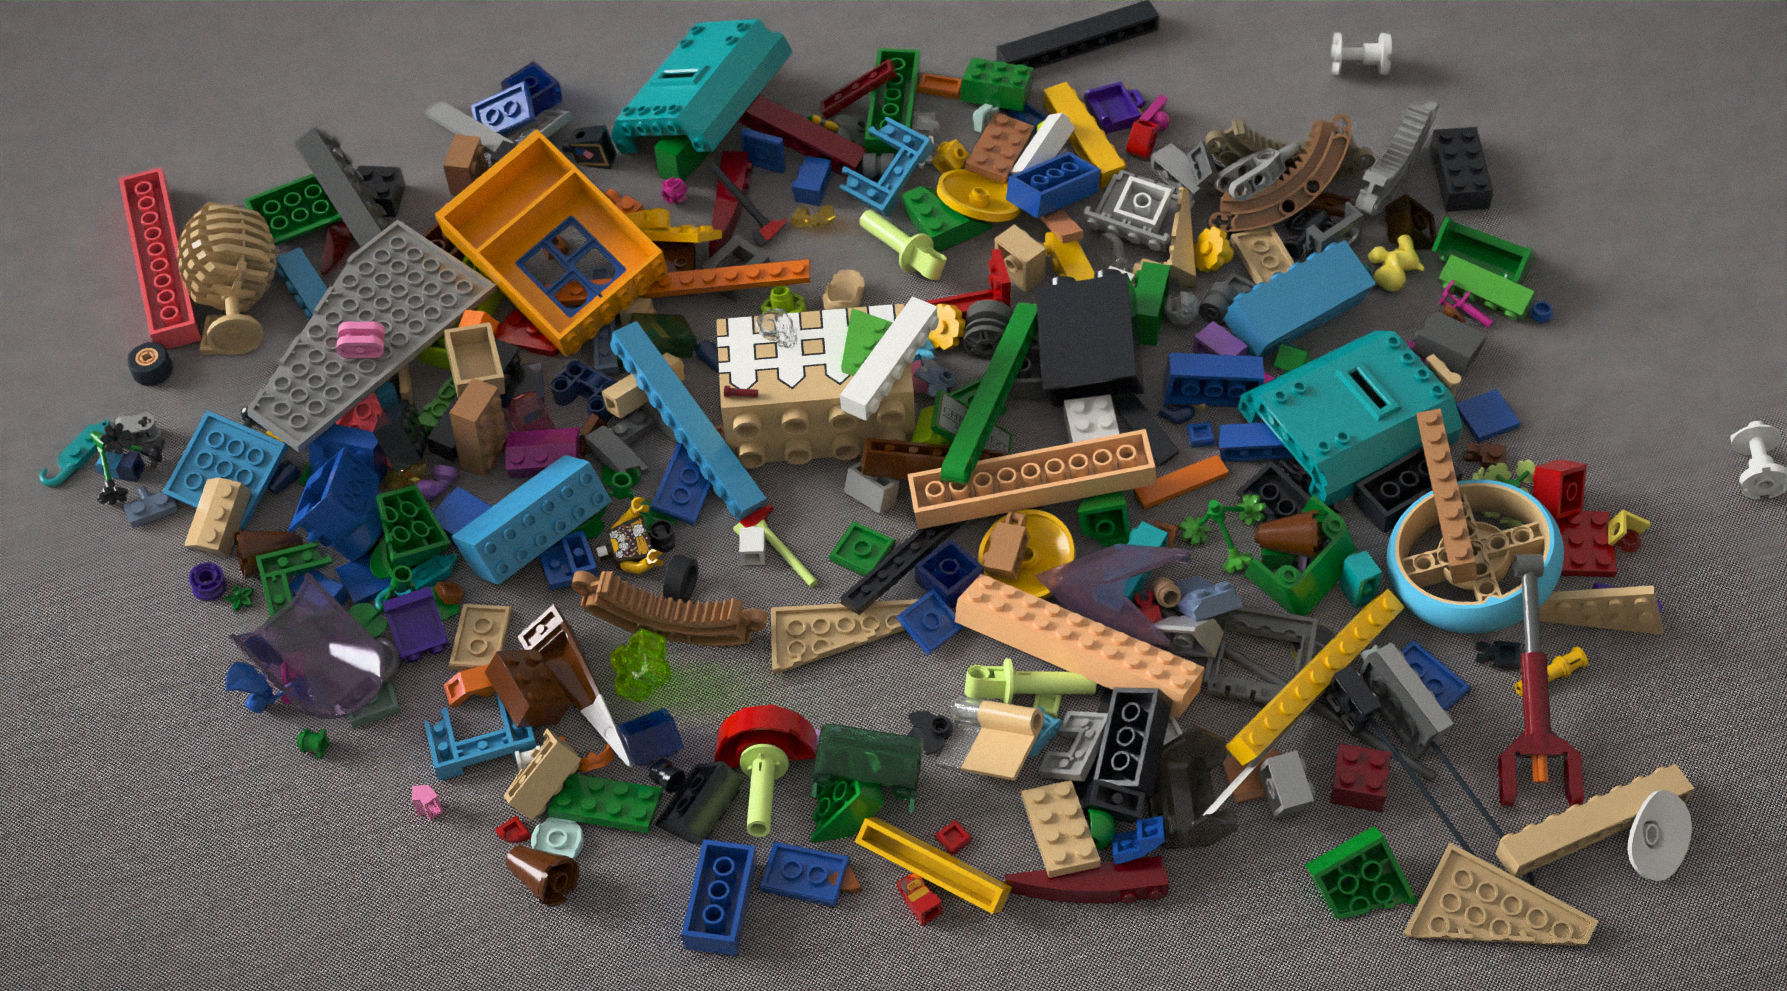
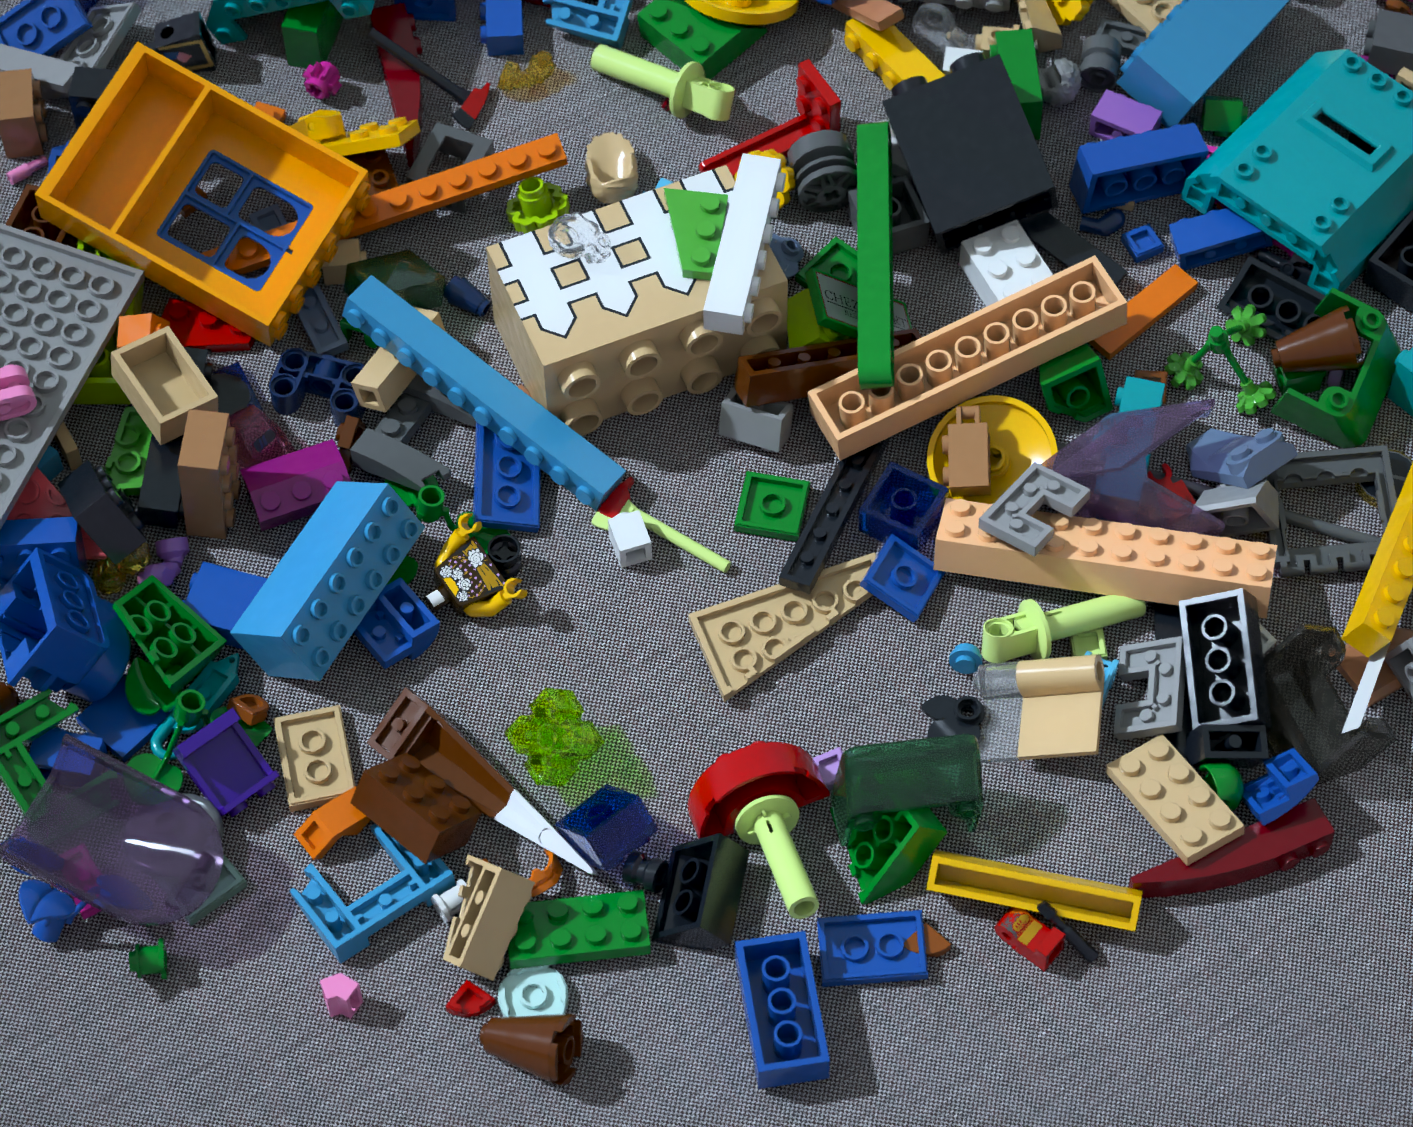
camera: 20 degrees left, 5 degrees up
(680, 578) = (557, 607): black tyre -> none
(689, 622) = (527, 667): medium nougat gear -> none
(740, 392) = (563, 338): dark red piece -> none
(947, 903) = (1072, 934): none -> black piece
(952, 689) = (965, 658): none -> dark azure plate
(953, 837) = (1040, 848): red tile -> none
(1015, 595) = (1012, 513): none -> light grey plate
(1022, 257) = (834, 57): tan brick -> none
(1165, 592) = (1184, 460): tan brick -> none

